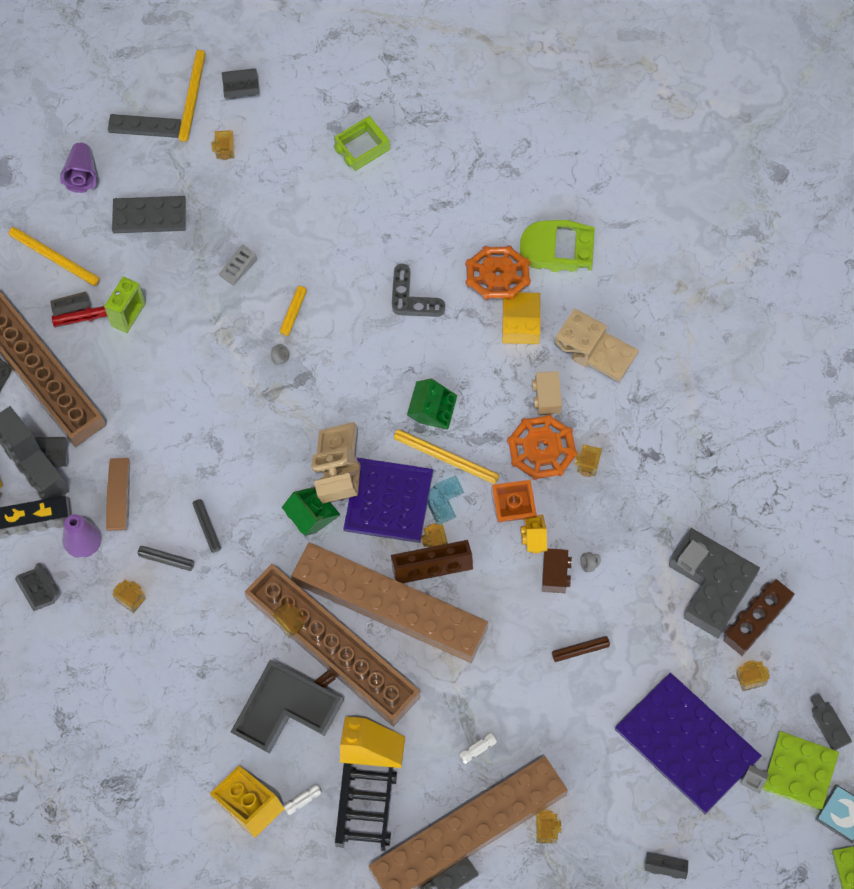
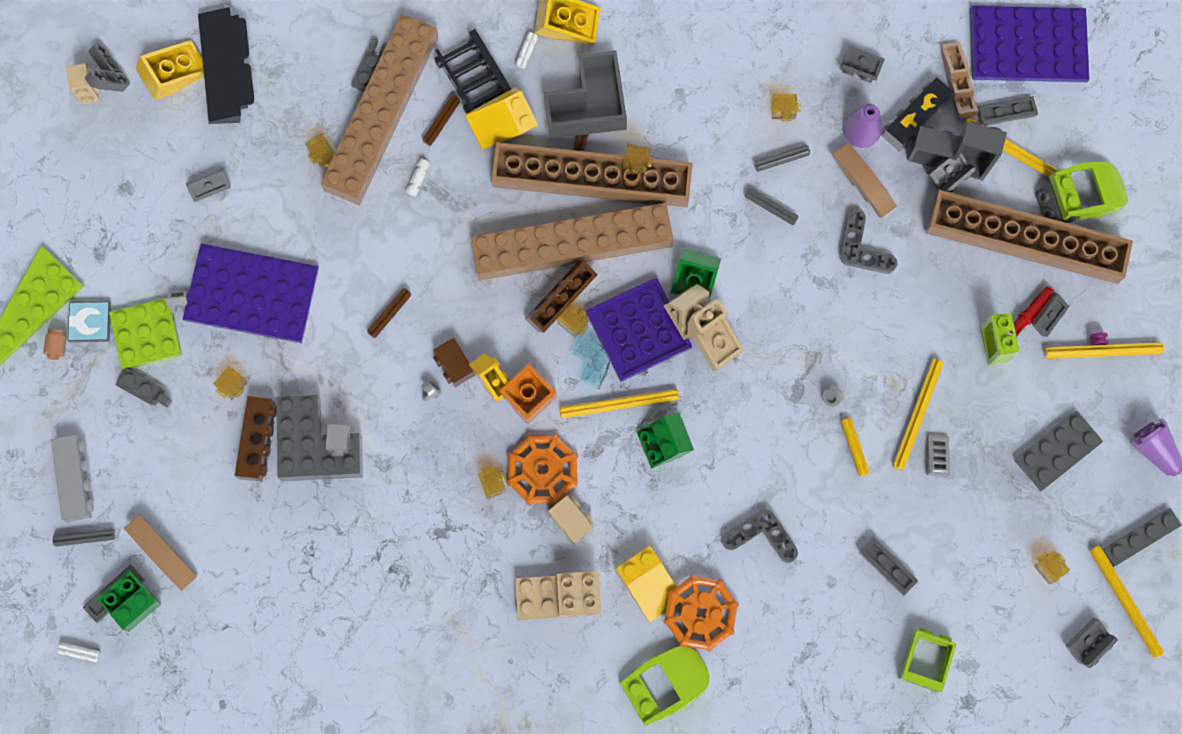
camera: 140 degrees right, 10 degrees up
(50, 264) = (1099, 338): none -> magenta bush
(169, 445) = (859, 253): none -> dark grey beam
(227, 302) = (918, 414): none -> yellow axle
(337, 218) = (888, 566): none -> dark grey plate
(422, 786) = (441, 120): none -> reddish brown axle

